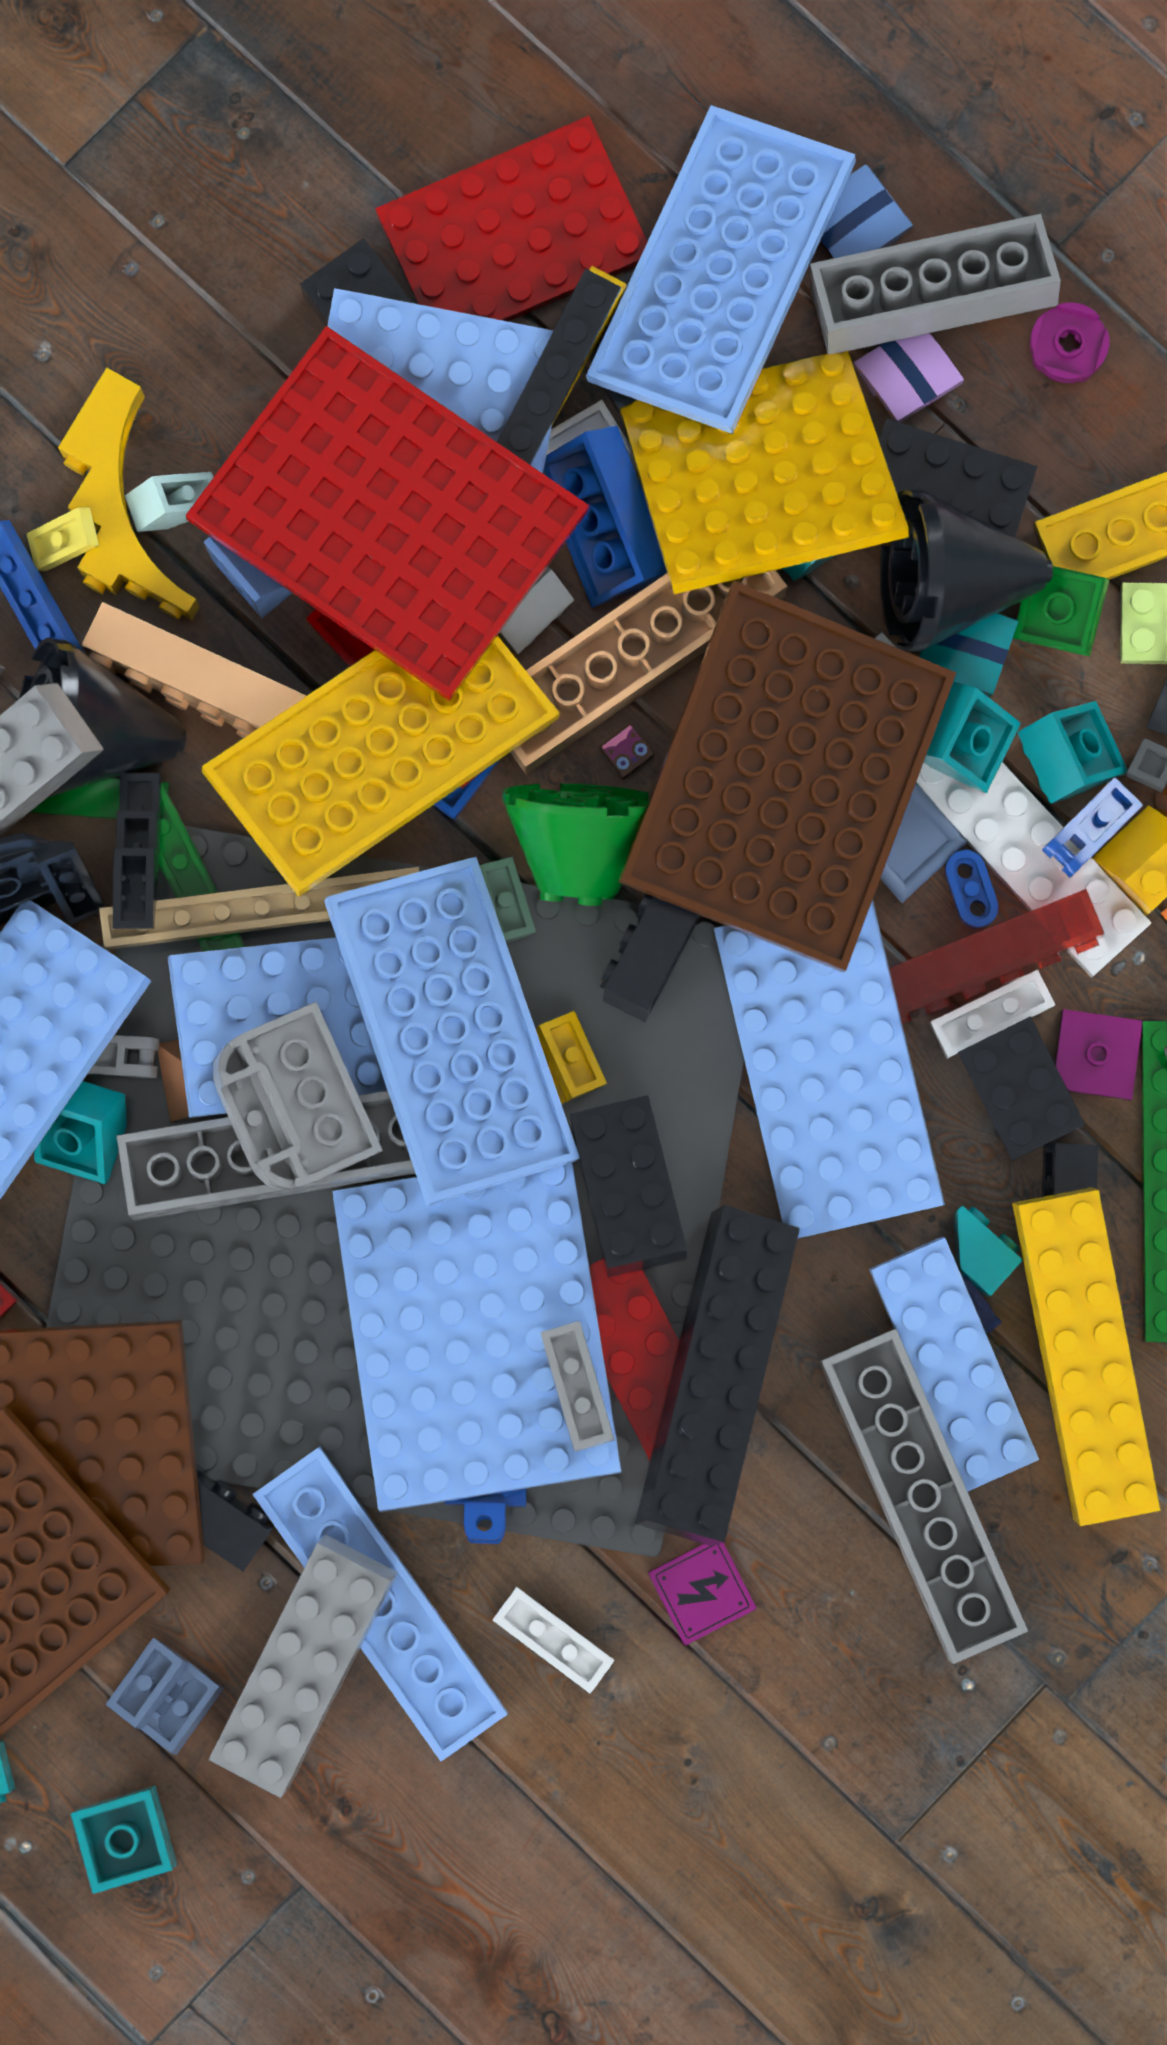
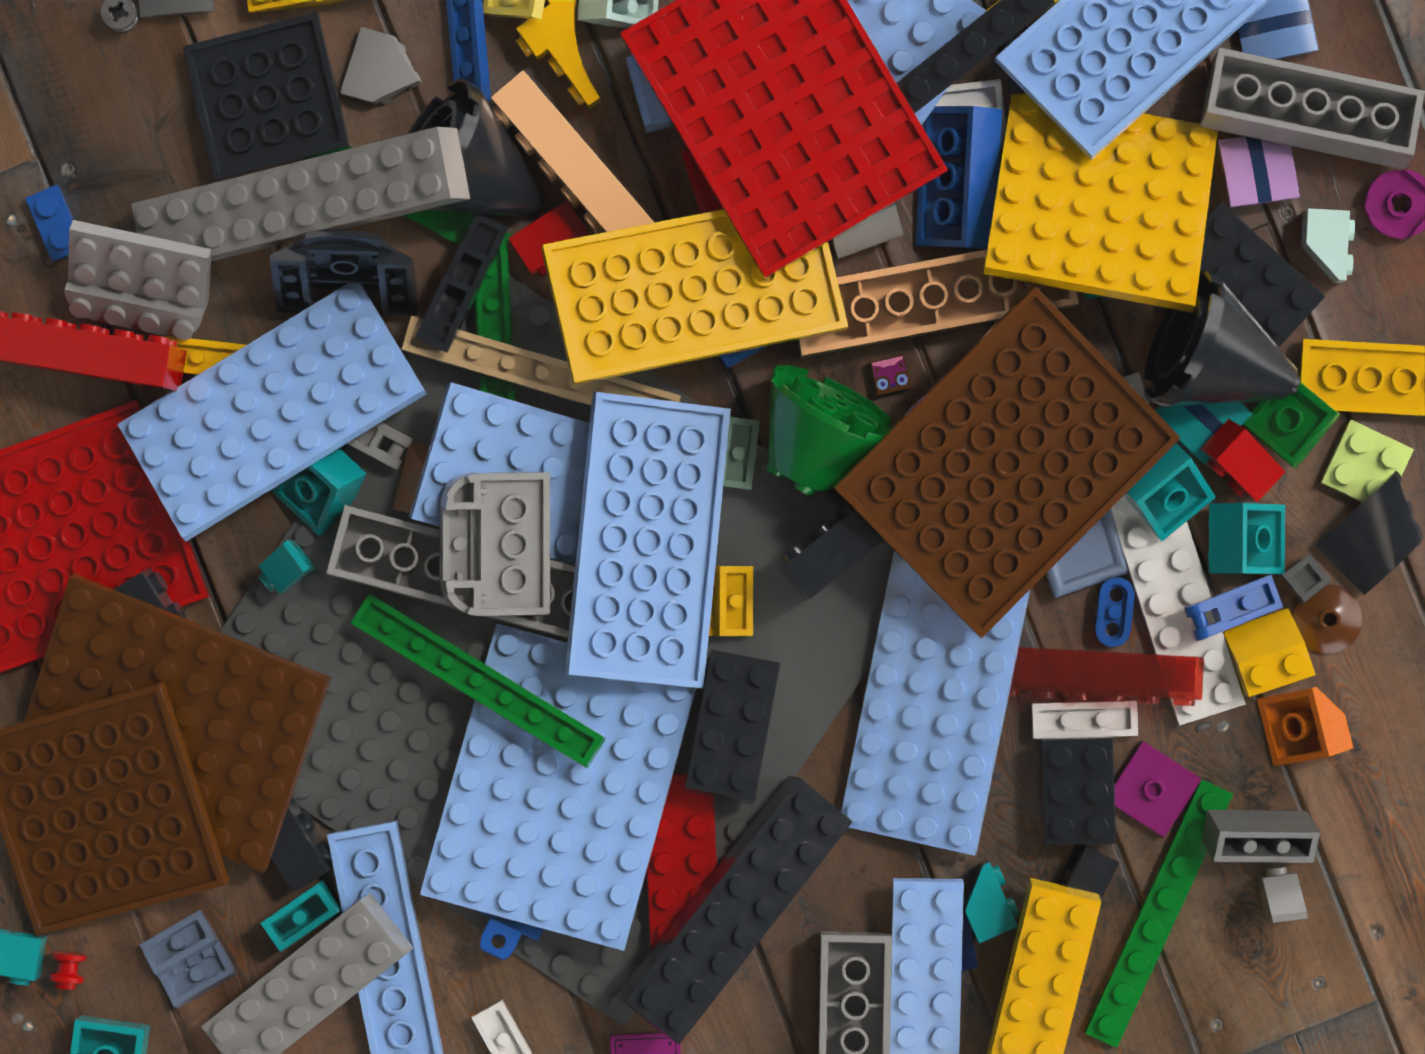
camera: 20 degrees right, 5 degrees up
(40, 1767) = (67, 969): none -> red wheel
(83, 1231) = (285, 567): none -> teal slope
(189, 781) = (552, 227): none -> red brick
(263, 1593) = (301, 916): none -> teal brick
(340, 1257) = (478, 681): none -> green plate
(577, 1386) = (619, 869): light grey plate -> none
(1012, 413) = (1326, 241): none -> light aqua slope
(1031, 673) = (1242, 460): none -> red brick

